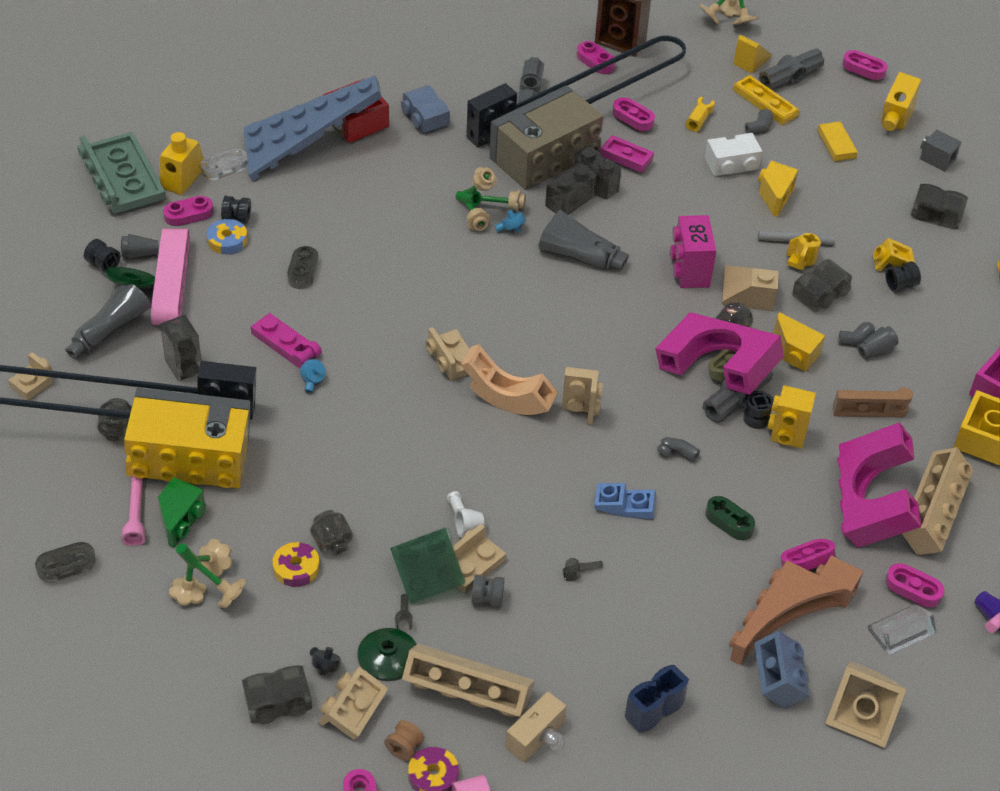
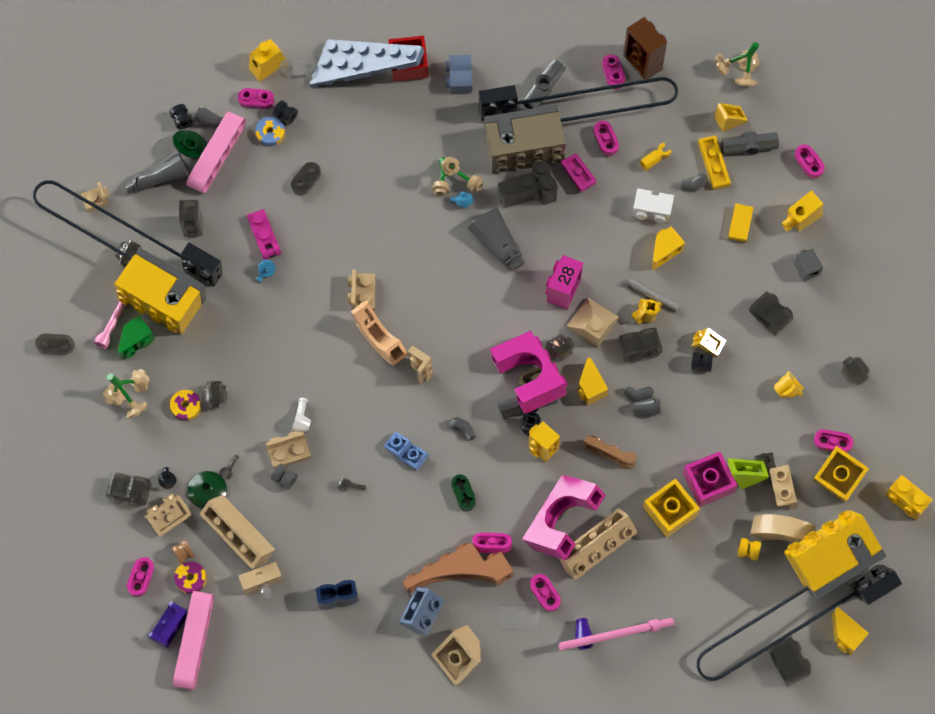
camera: 30 degrees right, 20 degrees up
(121, 172) = (226, 47): sand green bracket -> none
(428, 565) = (257, 442): clear green bracket -> none

